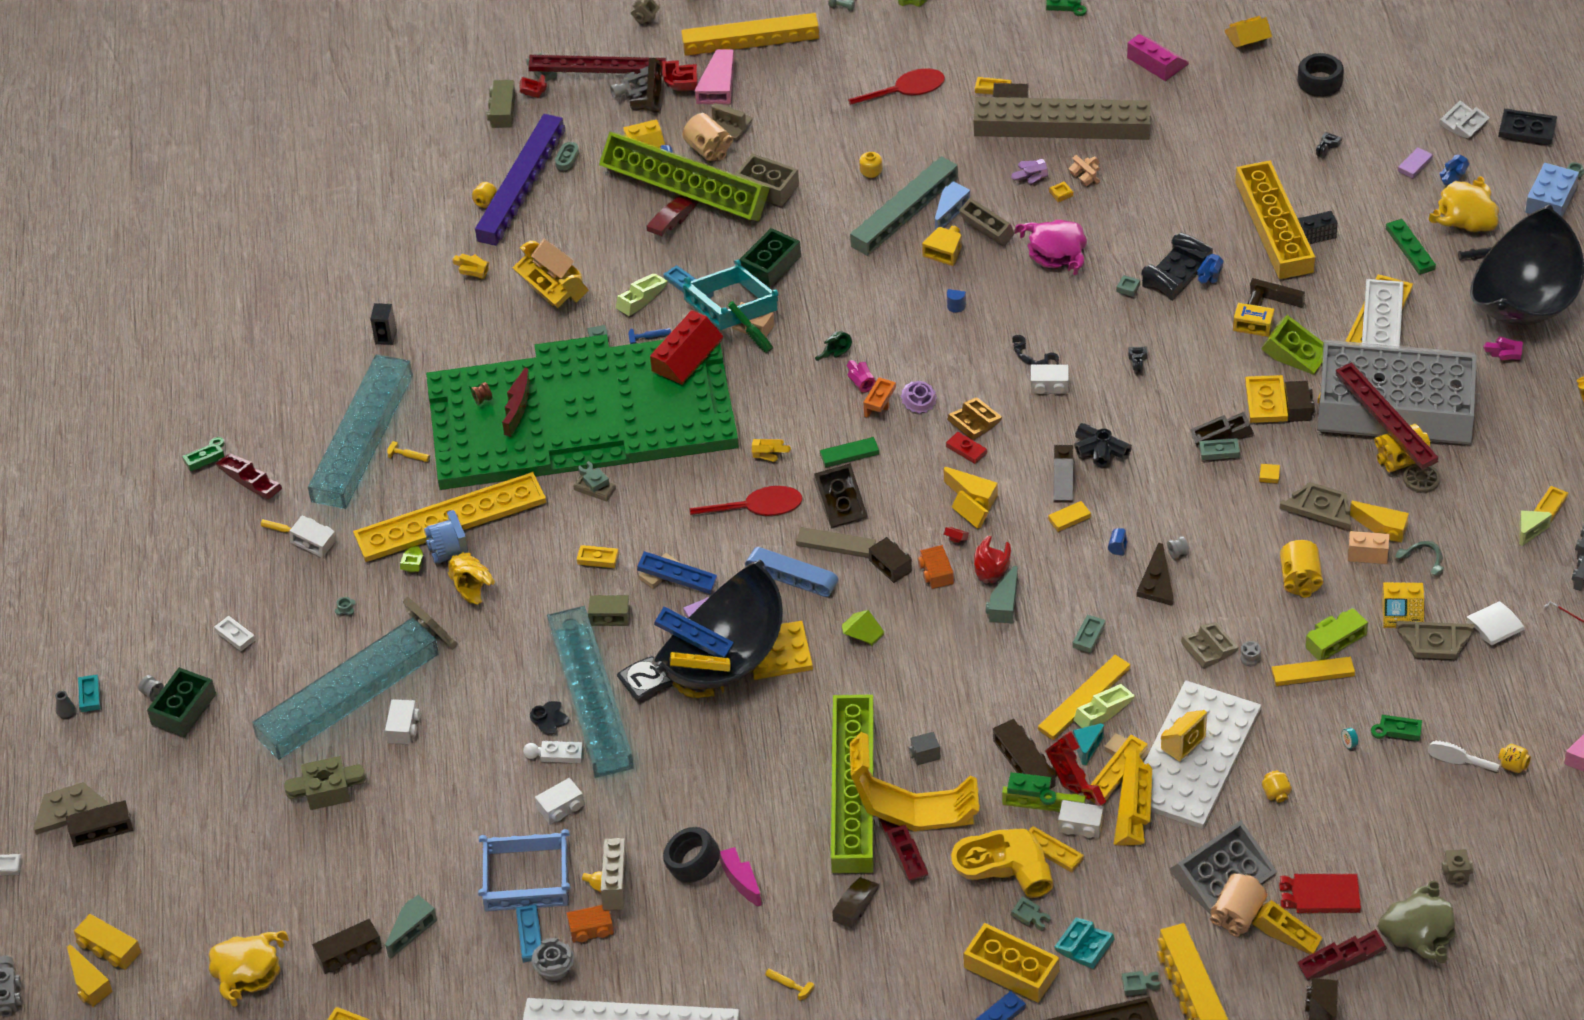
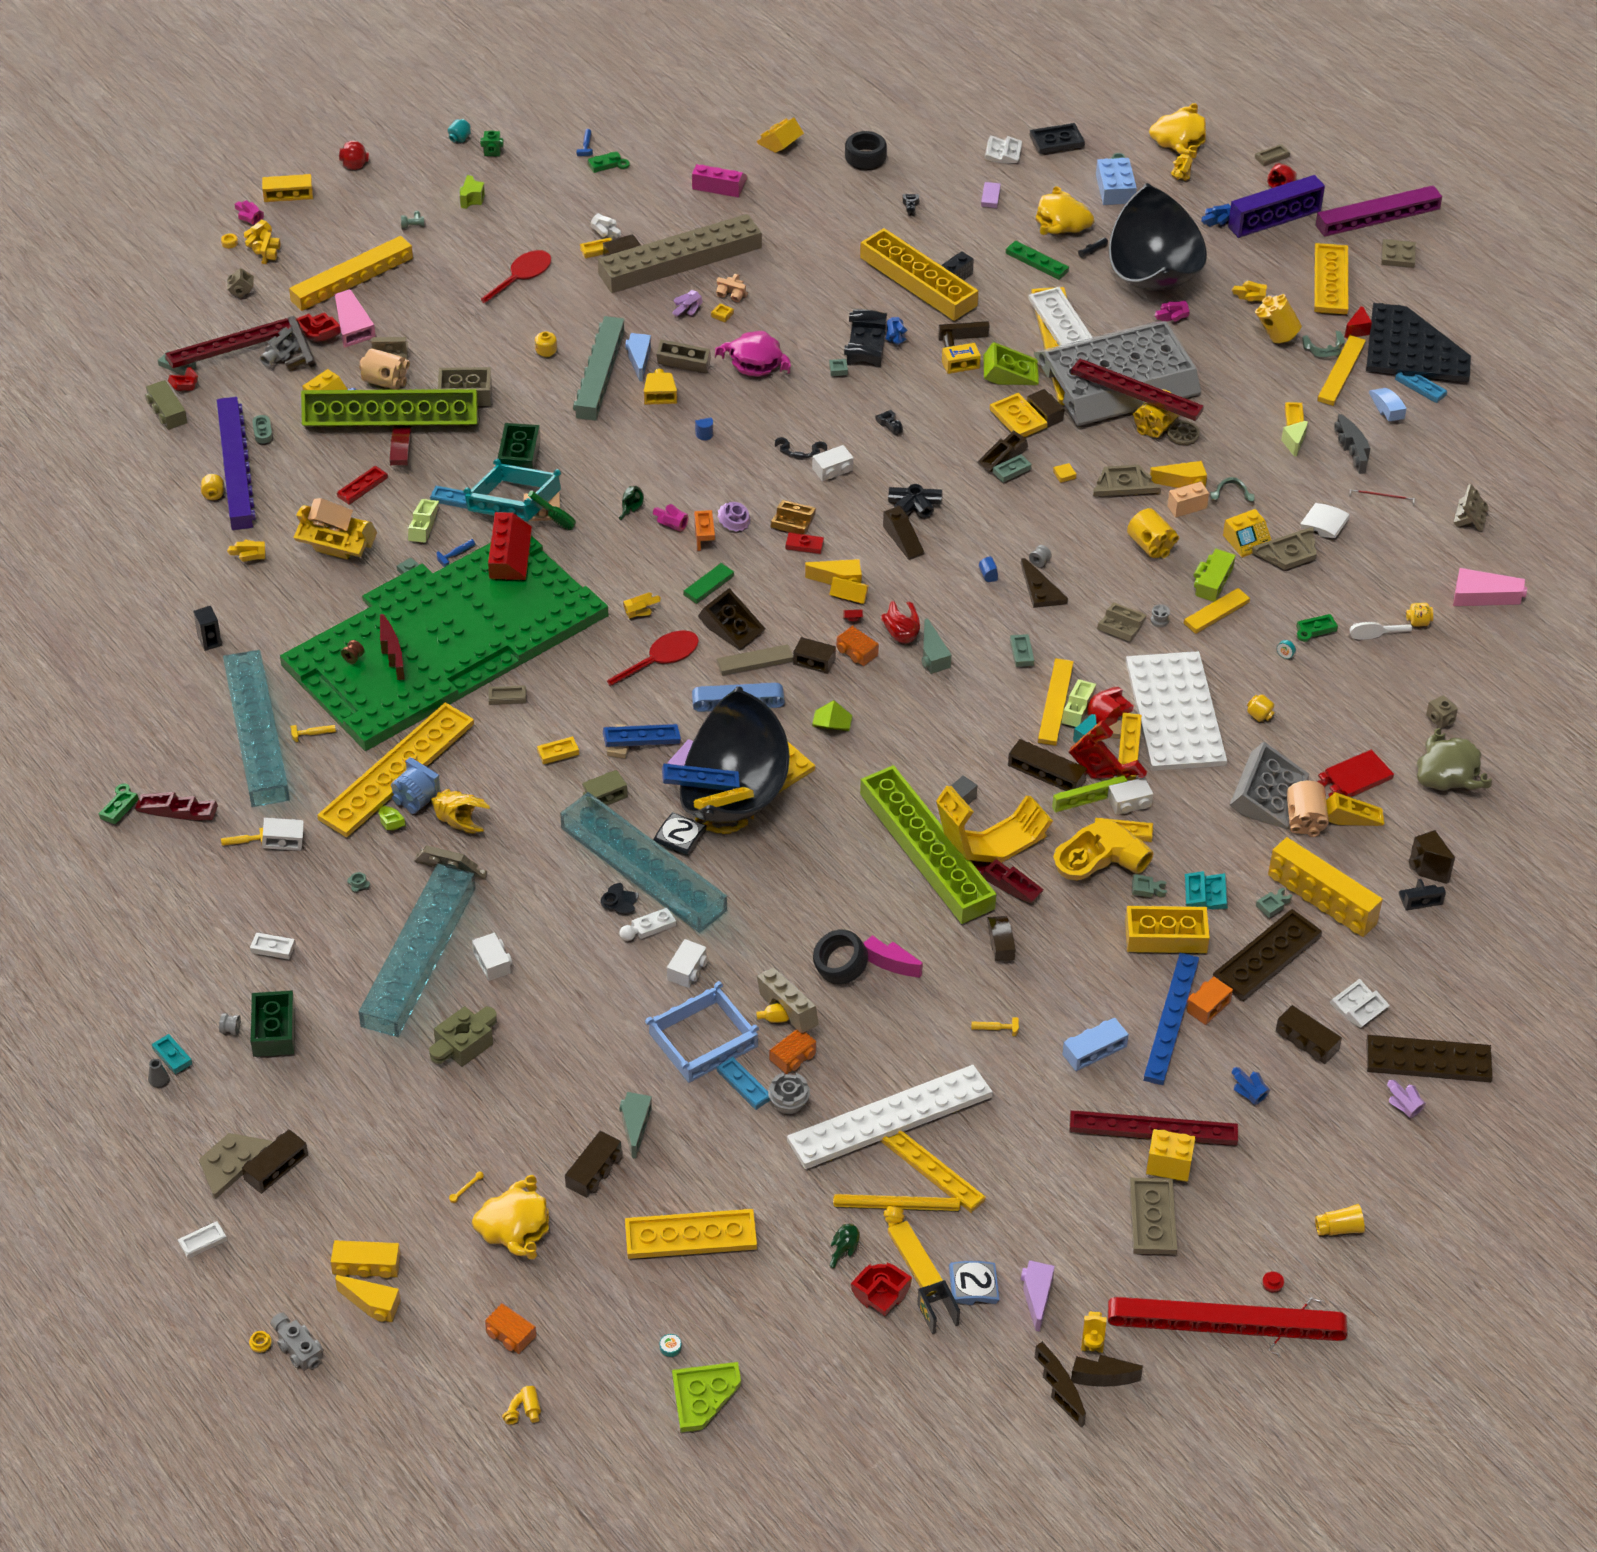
camera: 35 degrees left, 0 degrees up
(218, 922) = (454, 1197): none -> yellow hinge
(592, 478) = (505, 687): sand green plate -> none
(615, 240) = (362, 485): none -> red tile
(1012, 67) = (605, 226): none -> white rock
(1031, 786) = (1077, 785): green hinge -> none
(1069, 516) = (932, 565): yellow tile -> none
(1125, 720) = (1109, 705): none -> red brick
(1134, 801) = (1162, 764): yellow wedge -> none
(1184, 734) = (1165, 694): yellow slope -> none
(1341, 956) = (1408, 815): dark red slope -> none
(1454, 169) = (1027, 189): blue rock -> none

